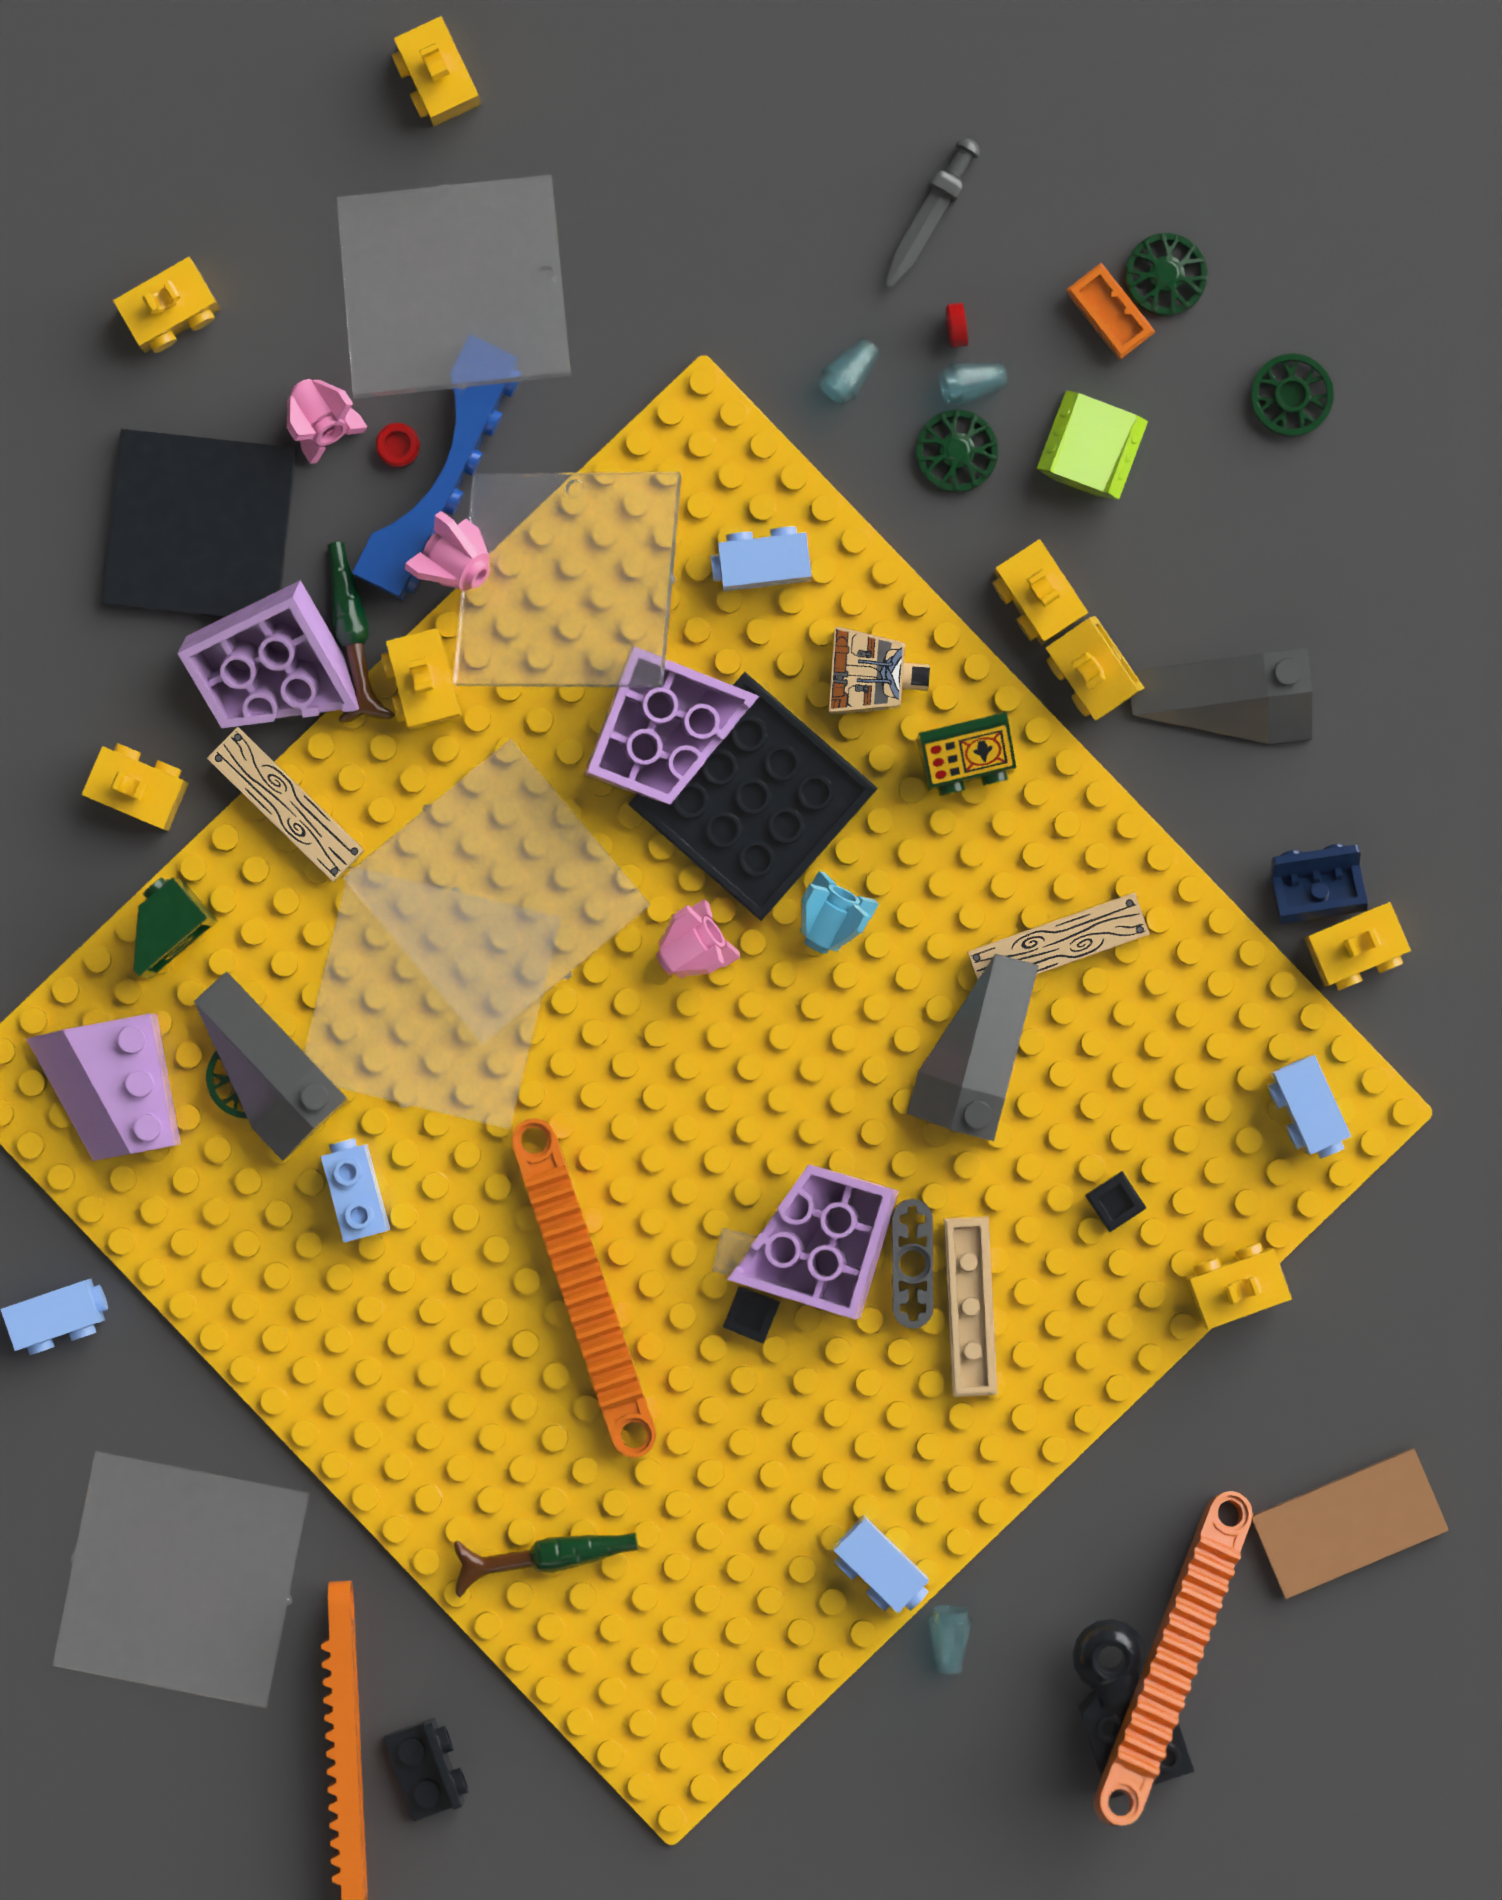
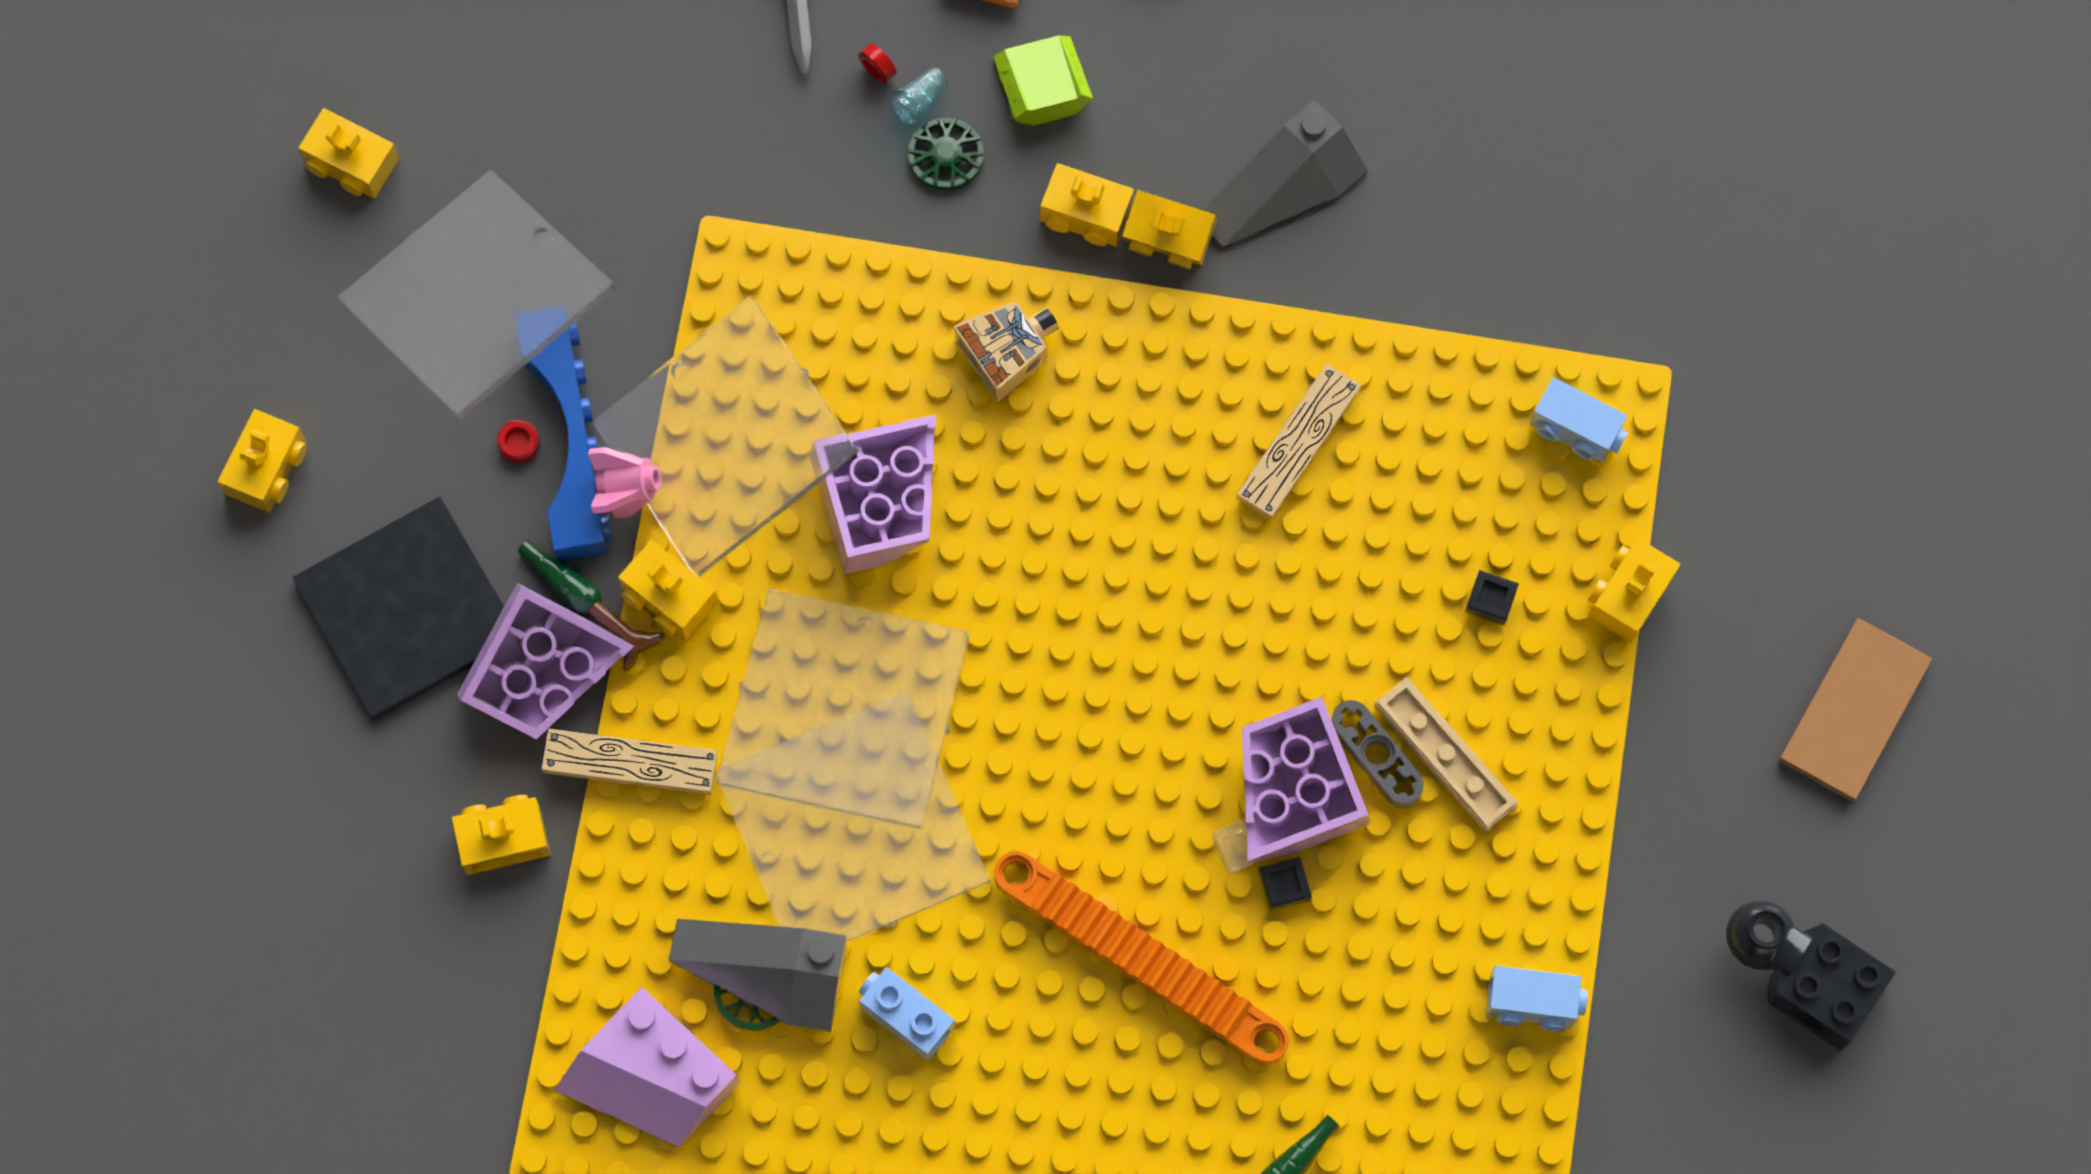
camera: 45 degrees left, 15 degrees down
(167, 924) = (607, 907): dark green slope -> none
(320, 416) = (443, 457): bright pink brick -> none
(694, 943) = (1025, 635): bright pink brick -> none
(761, 804) = (997, 503): black tile -> none
(762, 561) = (863, 322): light blue brick -> none
(833, 914) = (1115, 538): medium azure brick -> none
(848, 372) = (822, 152): clear light blue cone -> none
(949, 1637) = (1629, 1018): clear light blue cone -> none
(967, 753) = (1122, 347): slope -> none
(972, 1063) = (1304, 566): dark grey wedge -> none
(1173, 1659) = (1812, 898): orange gear -> none
(1318, 883) = (1454, 263): dark blue bracket -> none
(1358, 945) = (1518, 287): yellow brick -> none

